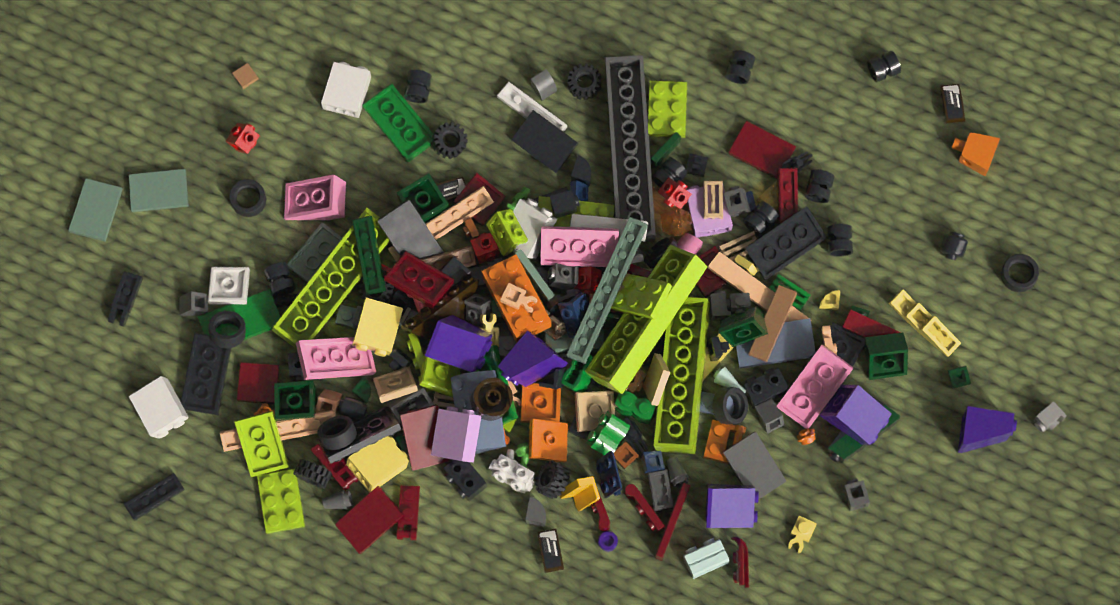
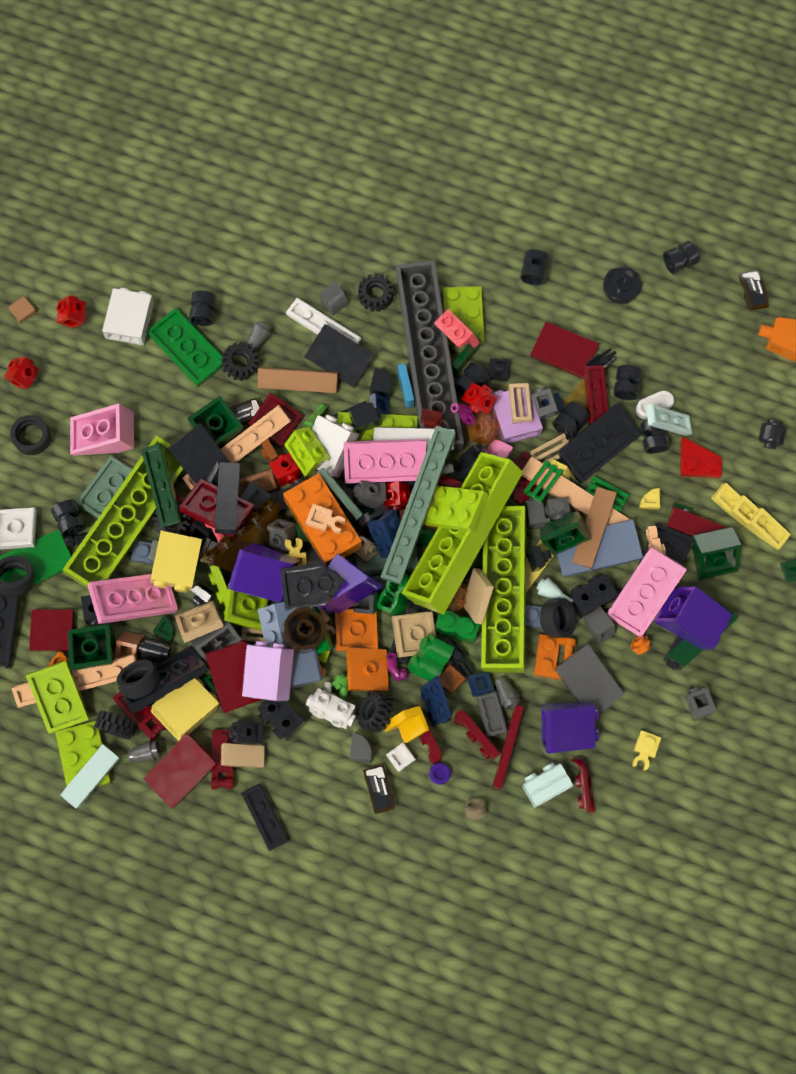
camera: 10 degrees left, 0 degrees up
(287, 518) = (89, 776): none -> light aqua tile
(292, 81) = (71, 311): none -> red brick
(427, 510) = (242, 755): none -> tan tile
(429, 271) = (227, 498): none -> black tile
(439, 491) = (254, 733): none -> black brick
(443, 568) = (264, 817): none -> black tile
(468, 116) = (258, 335): none -> dark grey cone
(499, 358) = (309, 585): none -> black tile
(503, 162) = (297, 380): none -> medium nougat tile
(572, 440) = (392, 666): none -> magenta arm
(573, 523) = (400, 757): none -> white tile
(605, 172) = (405, 386): none -> dark azure tile
(626, 209) = (431, 418): none -> clear red plate
(638, 575) = (475, 809): none -> dark tan tile
(657, 125) = (456, 330): none -> coral bracket
(659, 206) = (464, 412): none -> magenta arm
(738, 264) = (552, 468): none -> green tile
(824, 89) = (622, 285): none -> black tile
(844, 209) = (662, 399): none -> white tile
(854, 225) = (668, 420): none -> light aqua tile
(880, 267) = (698, 461): none -> red wing

